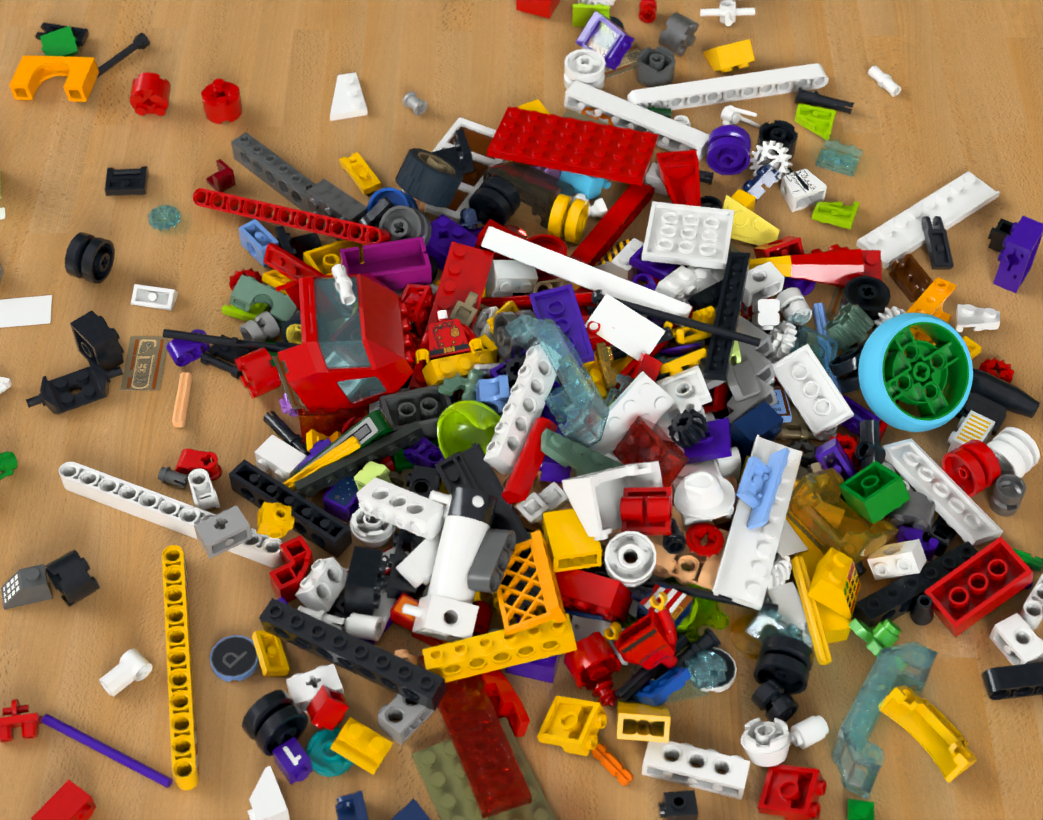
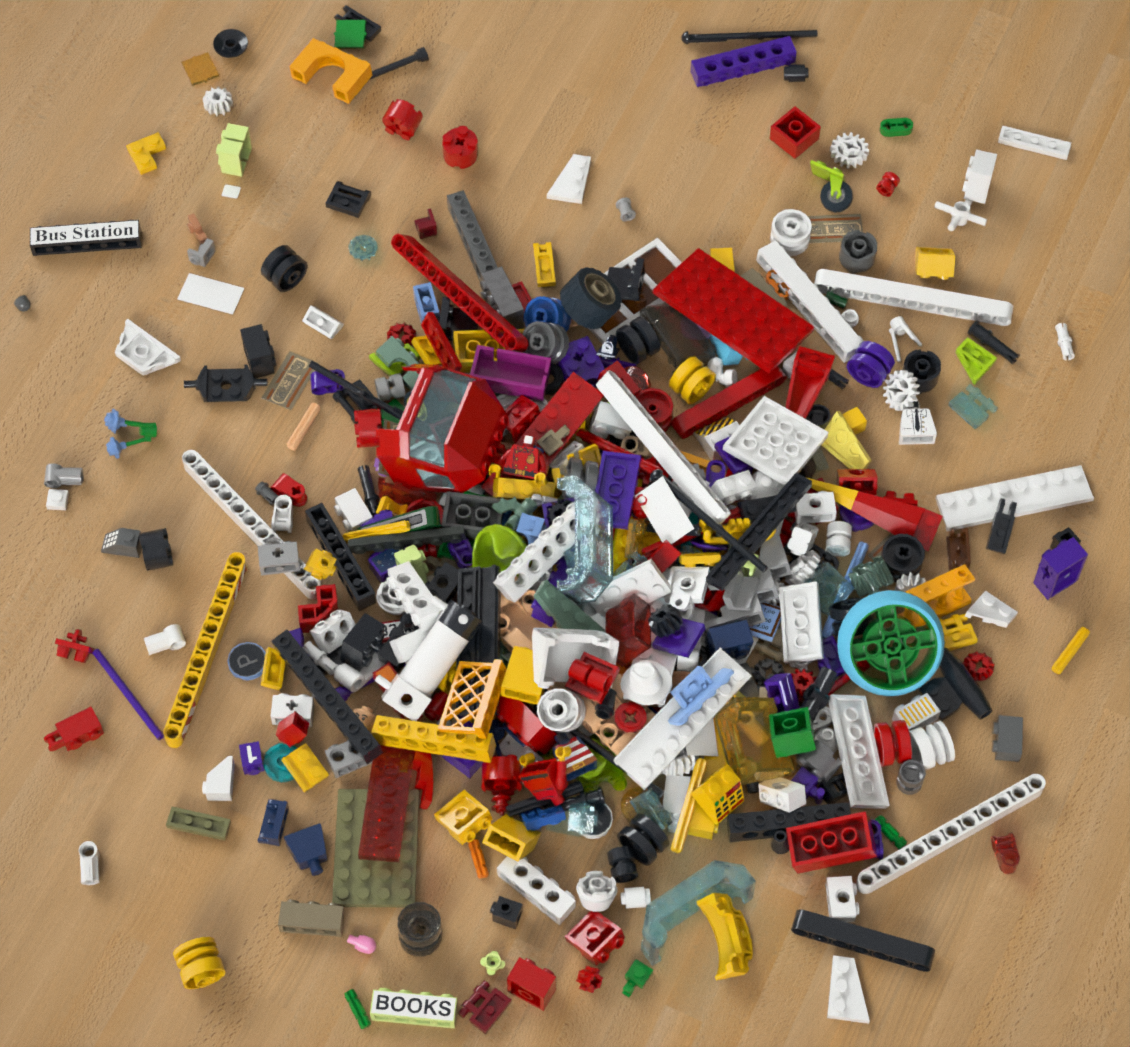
camera: 25 degrees right, 10 degrees up
(274, 721) = (249, 724): black wheel -> none
(343, 284) = (453, 388): white pin -> none
(375, 214) = (524, 320): black piece -> none
(491, 560) = (456, 668): dark grey beam -> none
(527, 463) = (522, 600): red brick -> none
(548, 500) = (518, 636): white slope -> none
(605, 38) = (825, 207): dark purple window -> none
(678, 33) = (898, 223): flat silver brick -> none
(765, 176) = (886, 402): hinge -> none
(835, 213) = (934, 462): lime wing -> none
(877, 637) = (726, 850): bright green plant -> none

